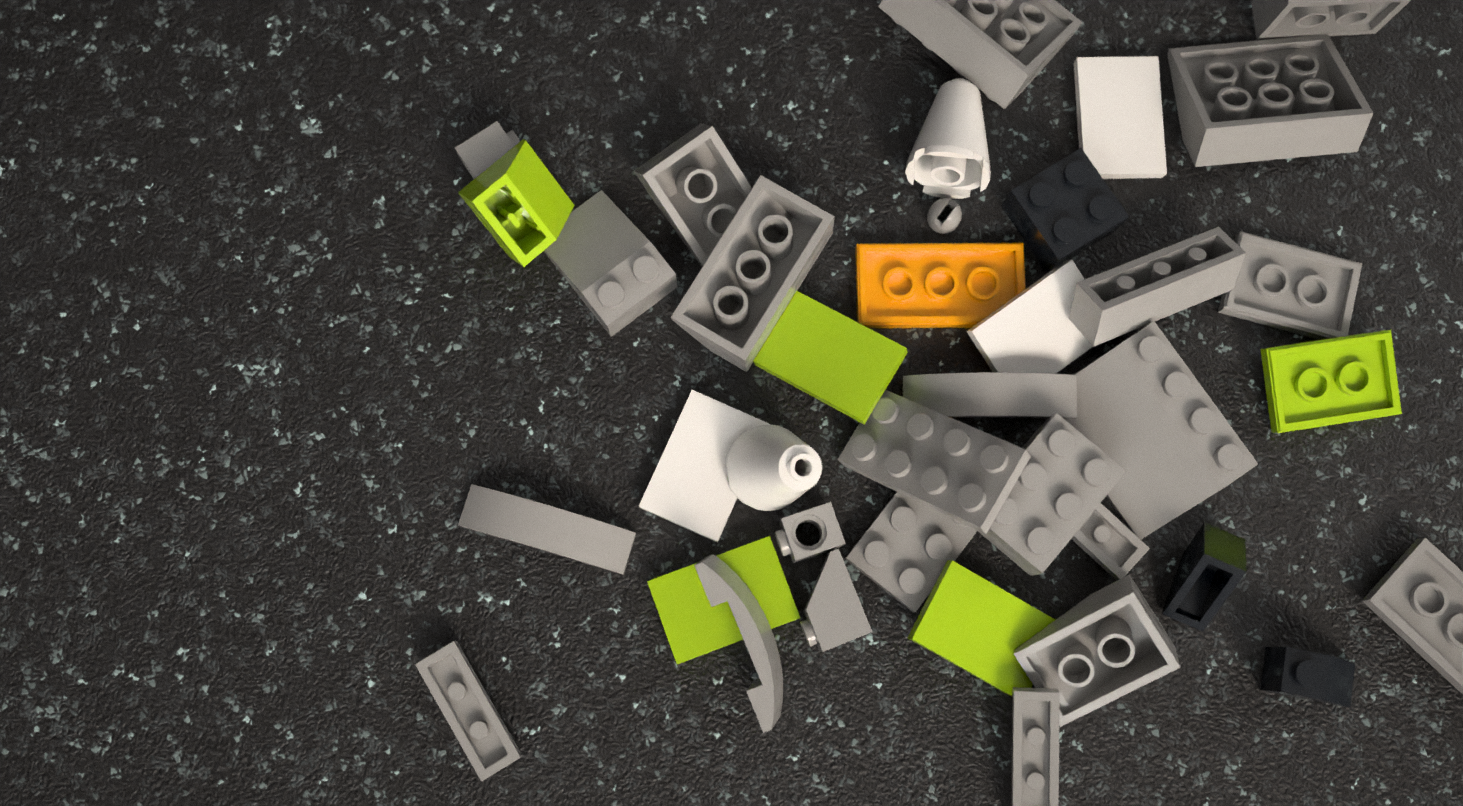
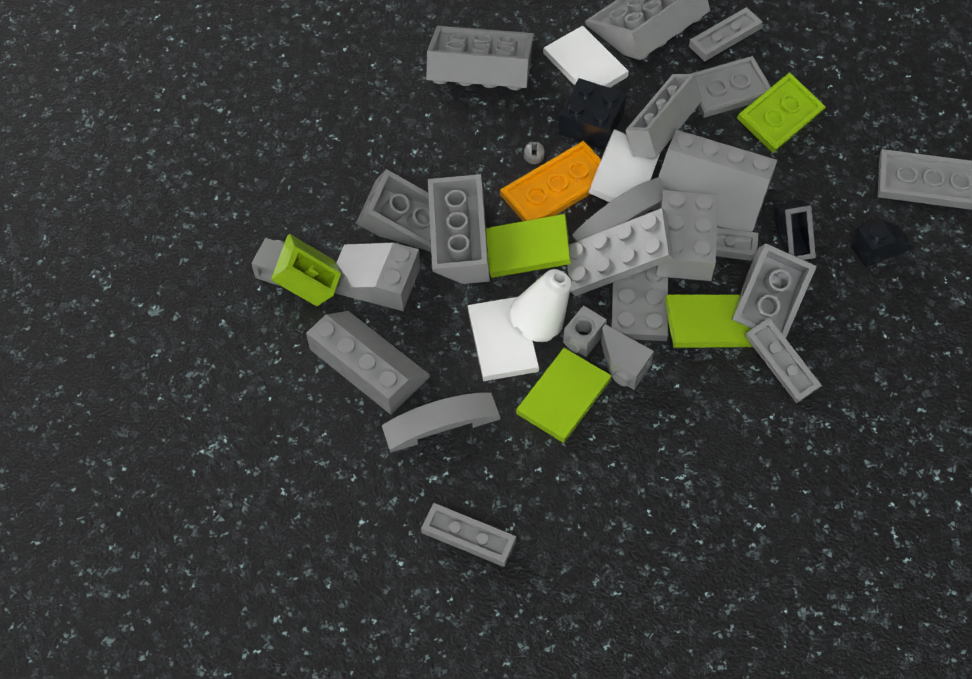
camera: 30 degrees left, 20 degrees down
(514, 379) = (366, 359): none -> light grey slope
(725, 585) = (560, 378): light grey slope -> none
(952, 144) = (514, 117): white cone -> none
(1351, 202) = (725, 34): none -> light grey plate

